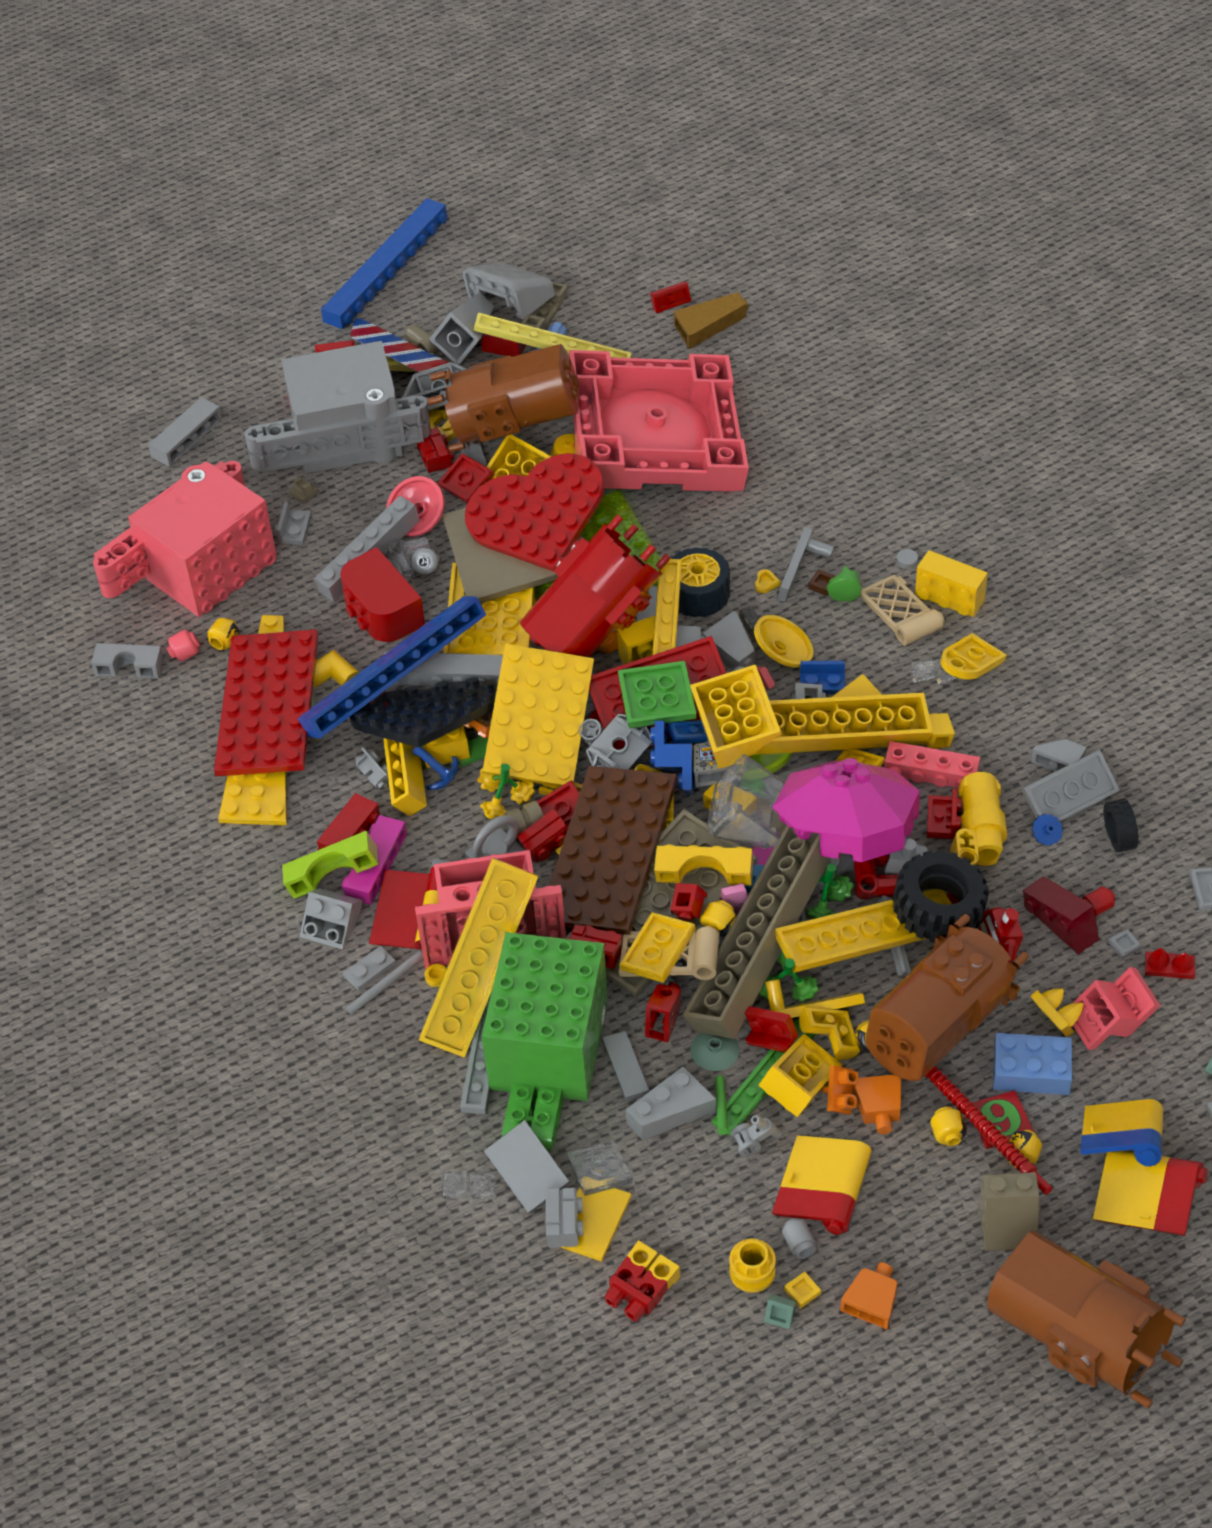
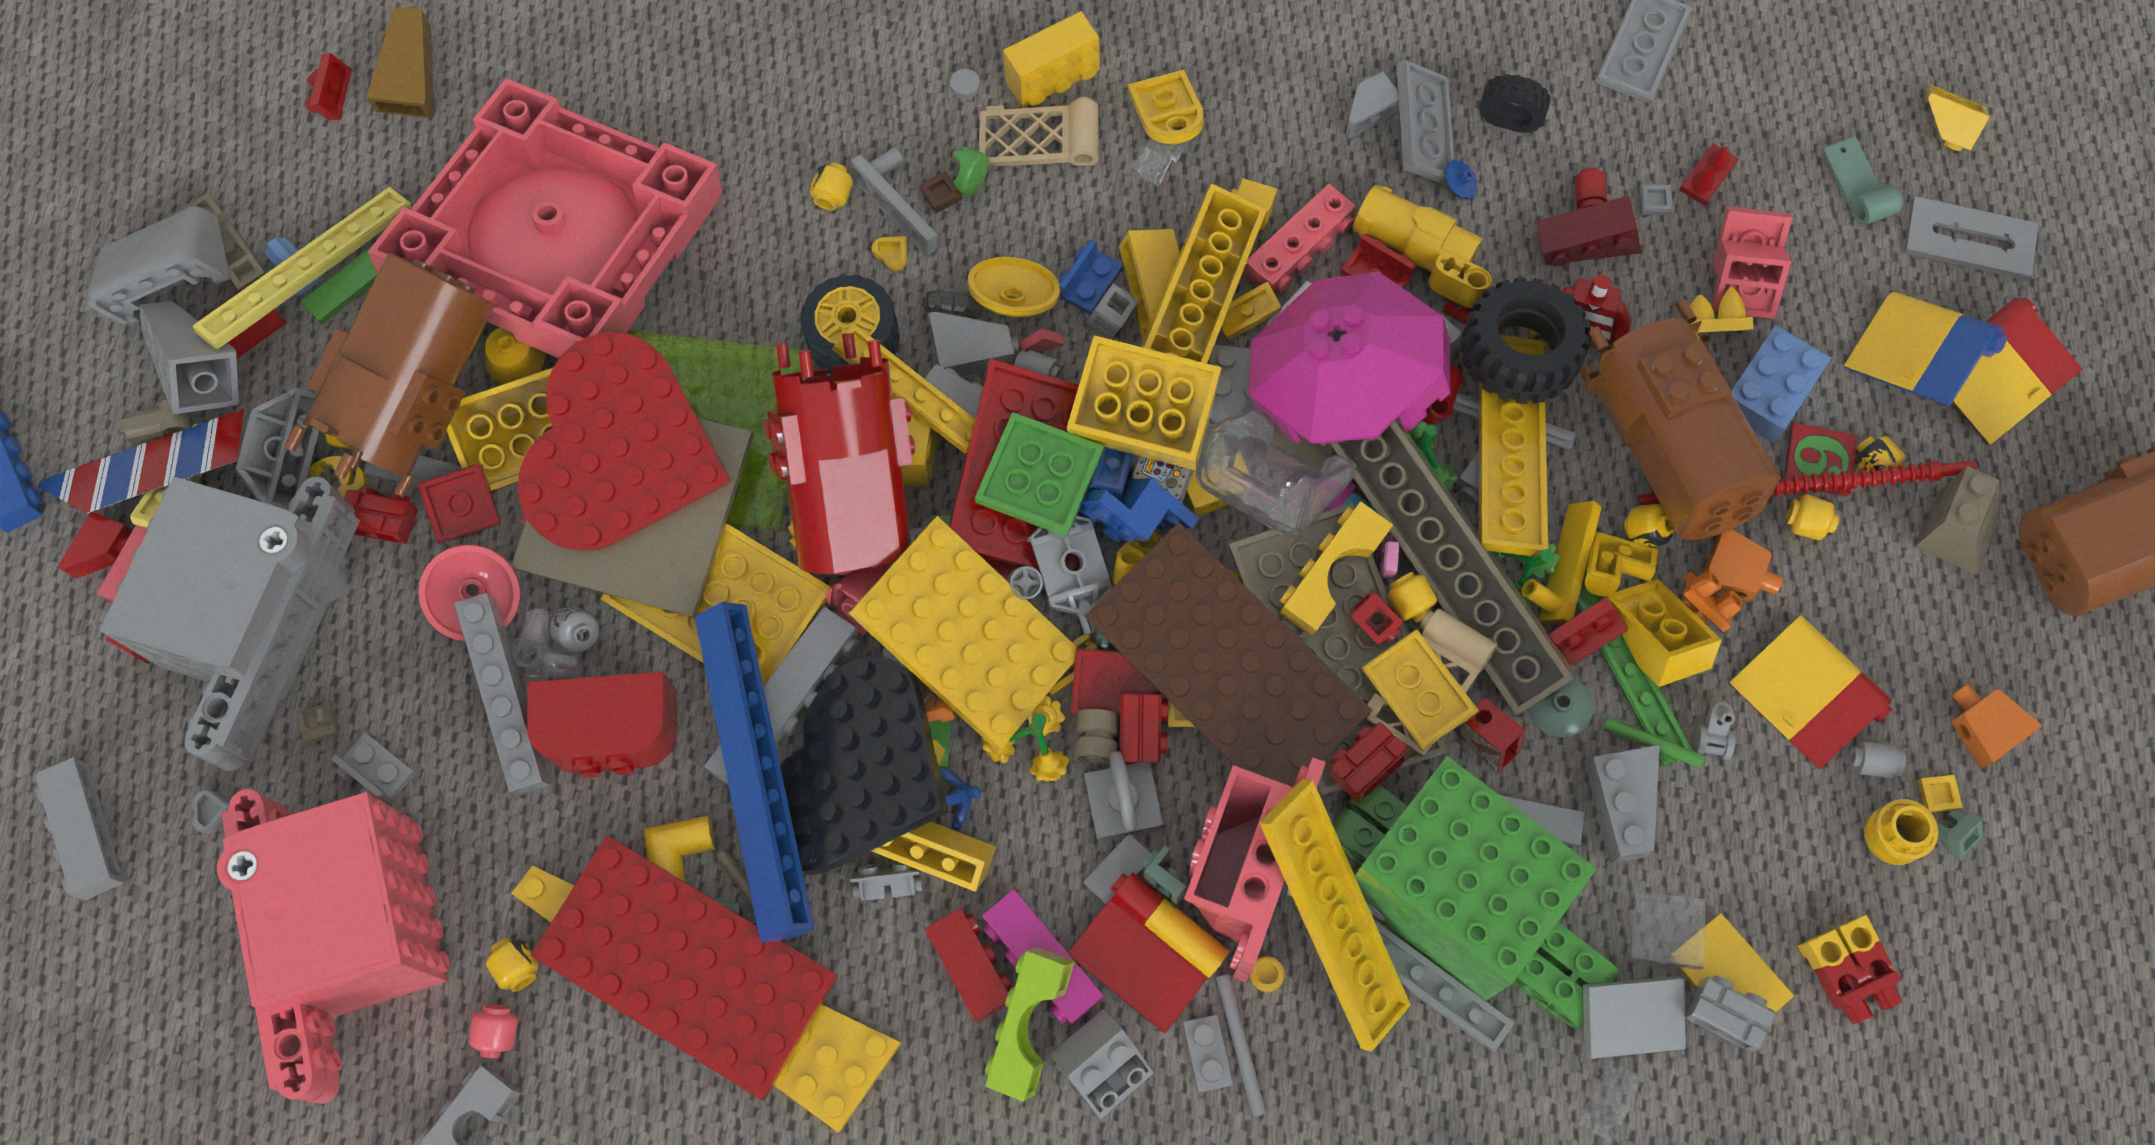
camera: 60 degrees left, 20 degrees up
(783, 530) = (831, 186): none -> yellow head

